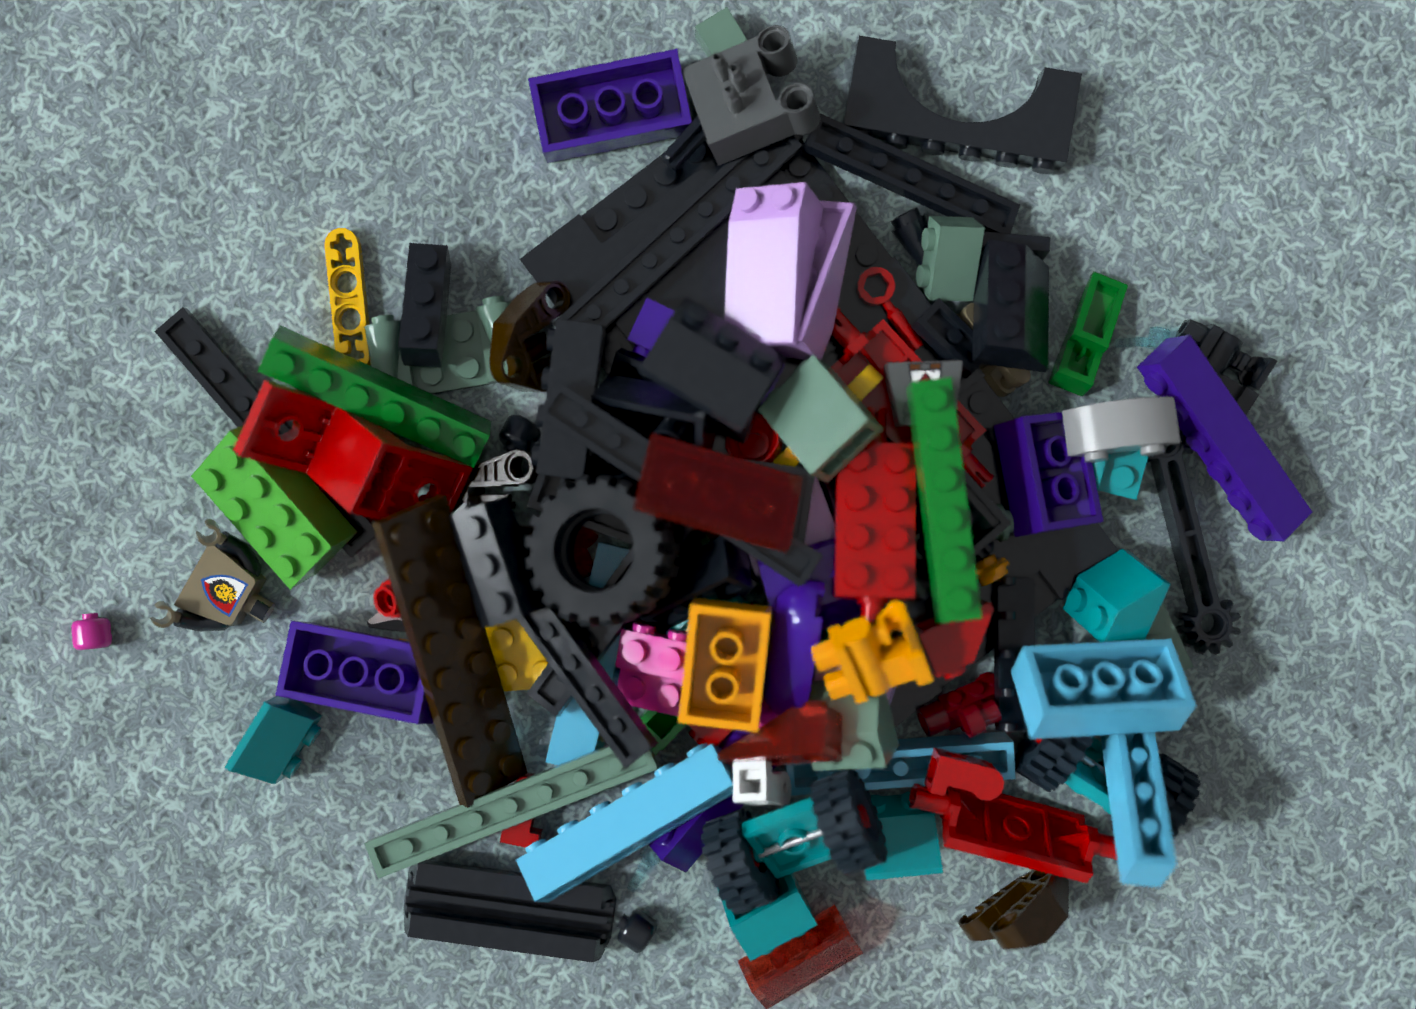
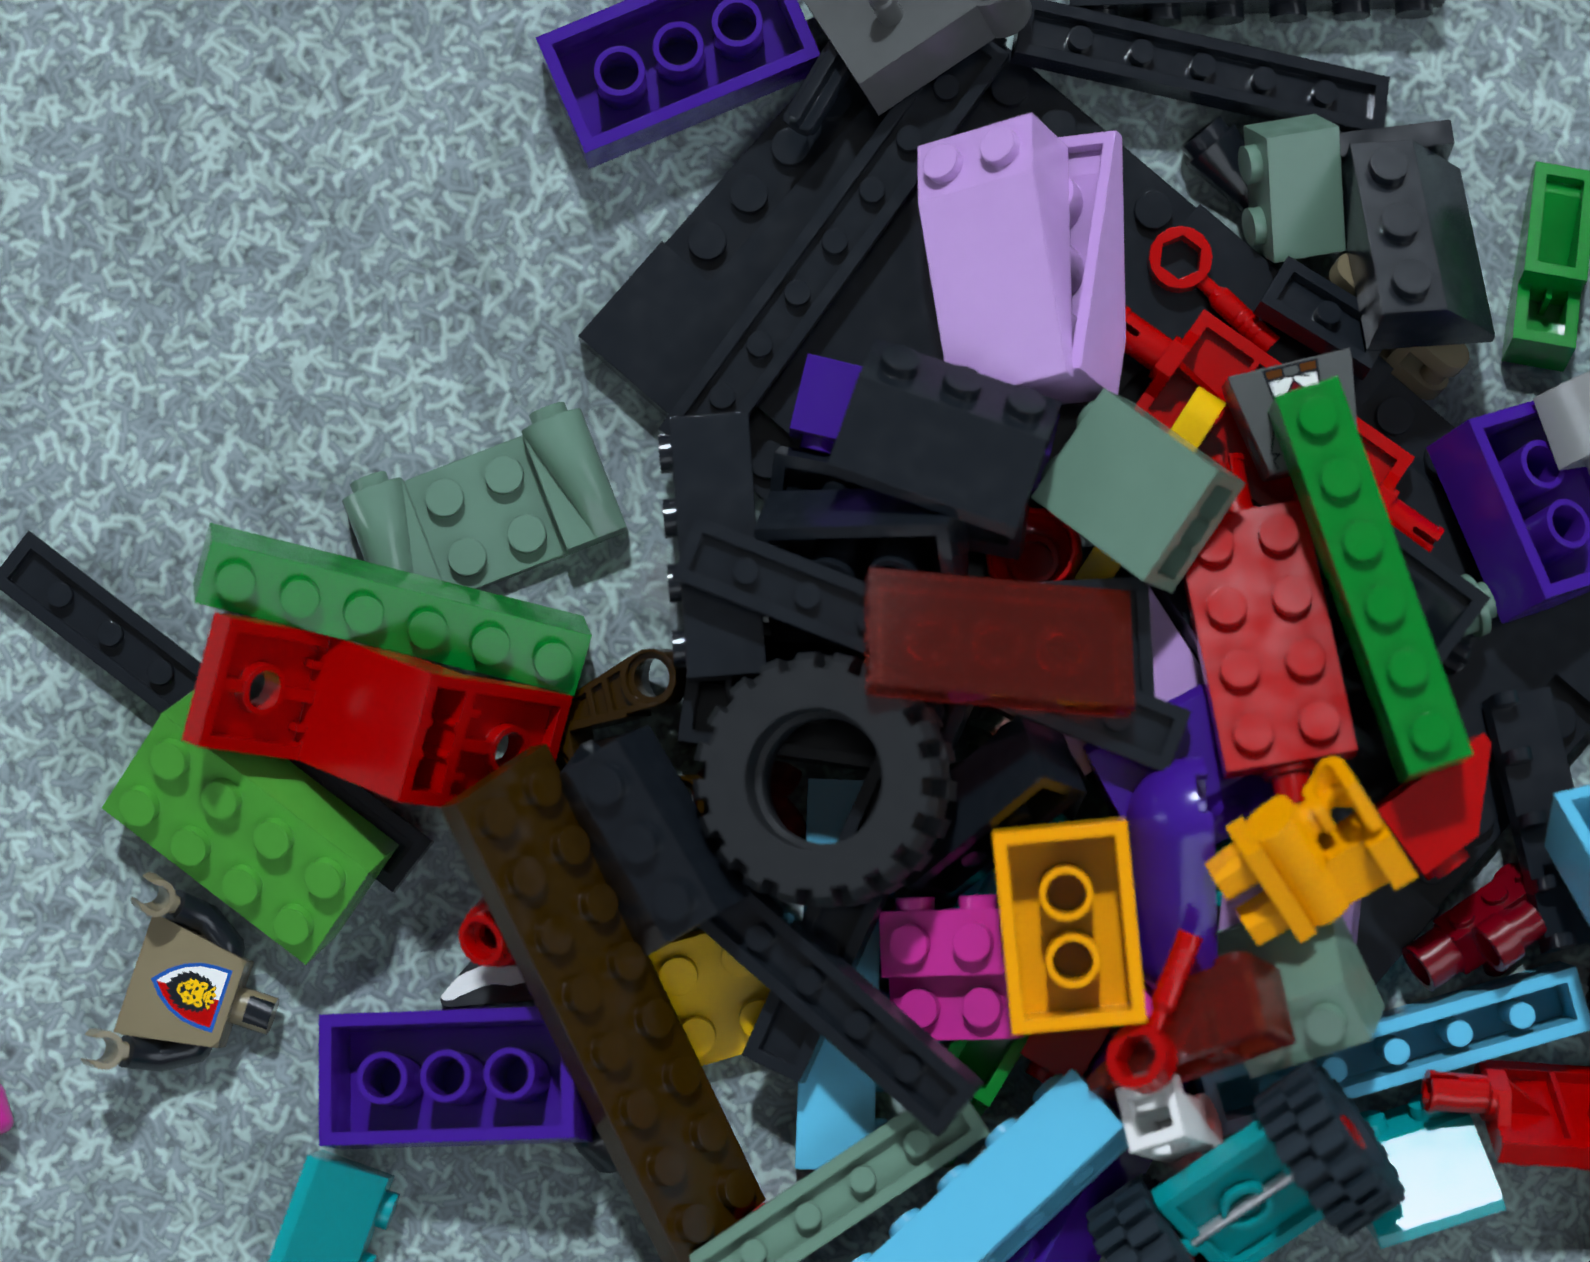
camera: 15 degrees left, 5 degrees down
(354, 300) = (309, 462): yellow beam -> none
(425, 305) = (438, 443): black brick -> none
(517, 322) = (612, 423): dark brown connector -> none
(519, 433) = (633, 625): black piece -> none
(770, 722) = (1163, 1002): none -> red piece
(964, 773) = (1503, 1032): red leg -> none
(991, 569) = (1474, 685): light orange plate -> none

